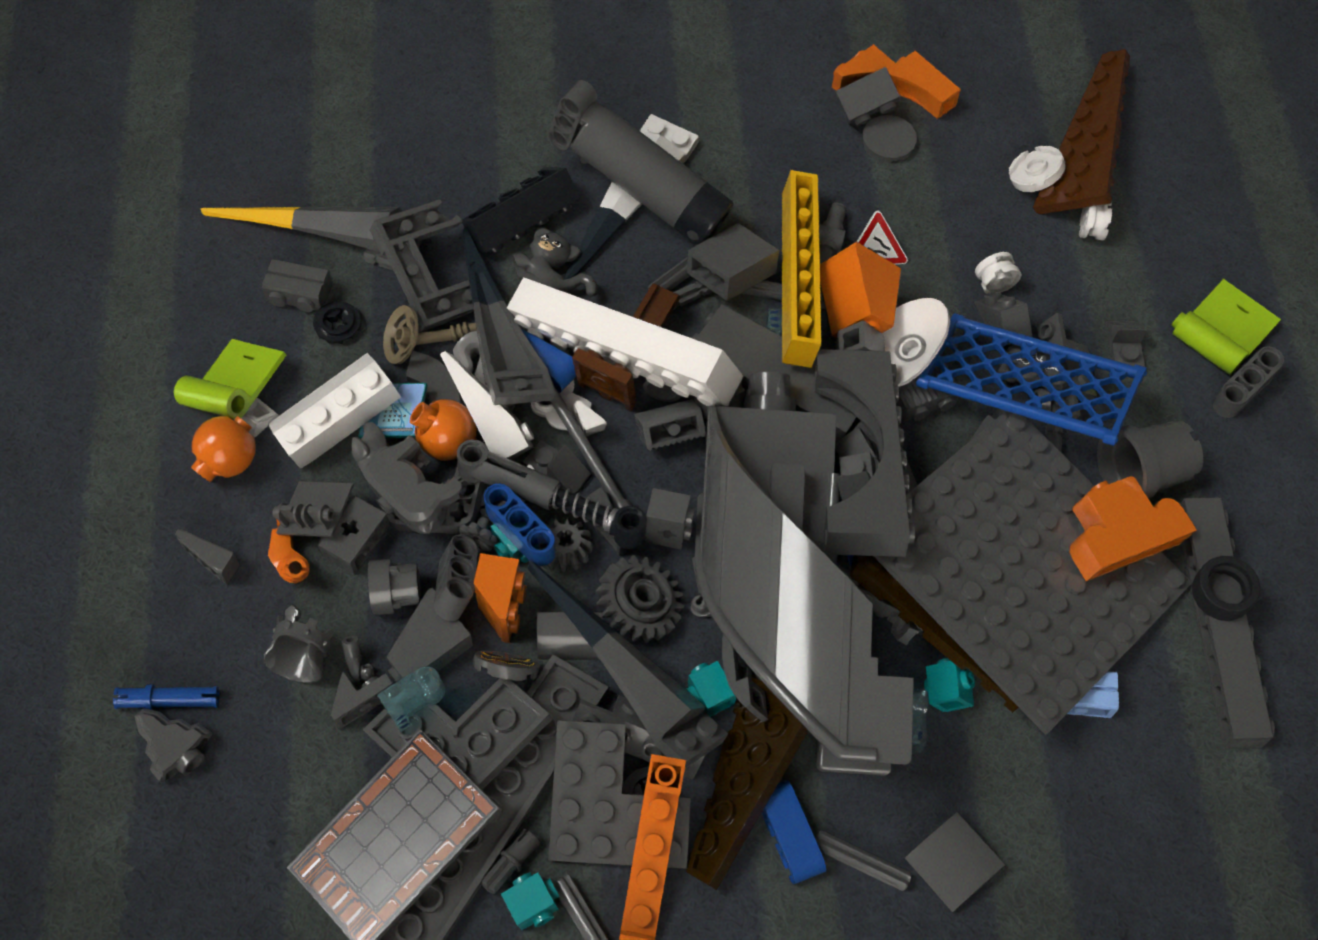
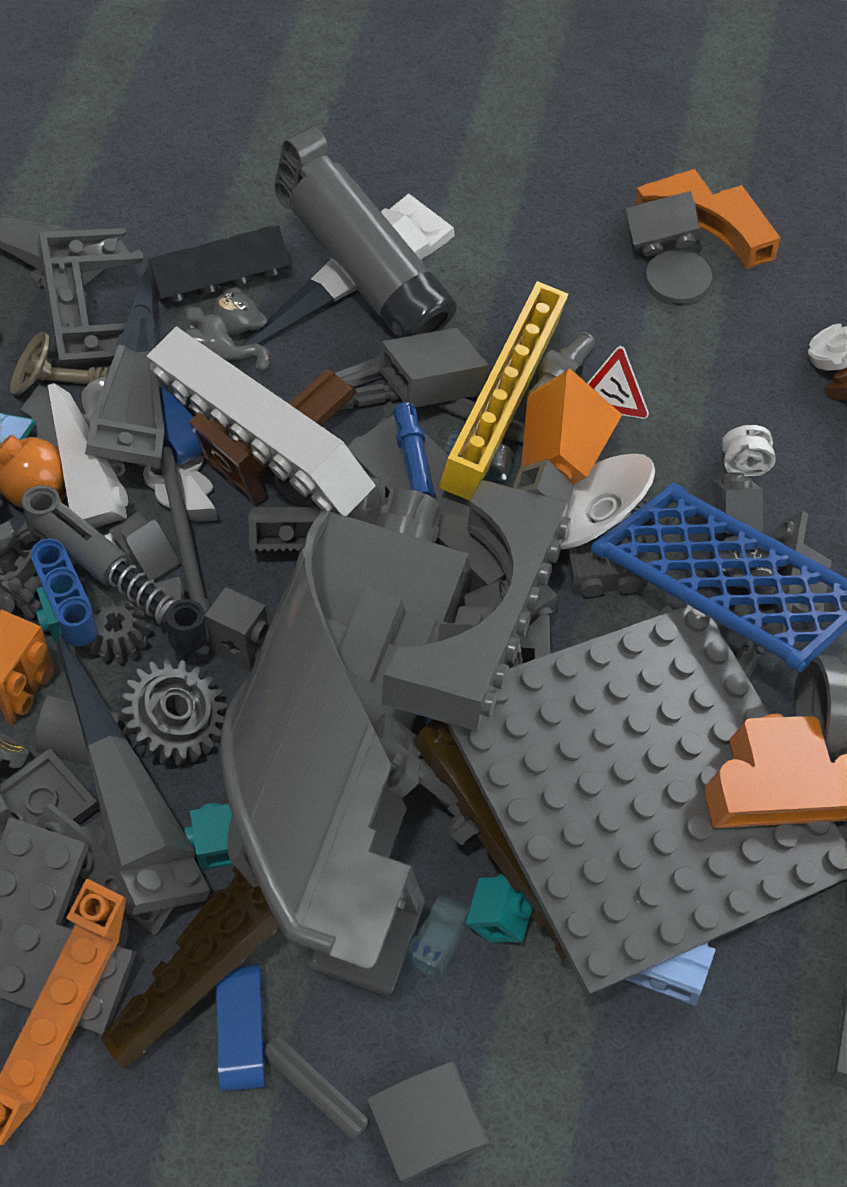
camera: 20 degrees right, 5 degrees down
(744, 329) = (411, 441): none -> blue pin

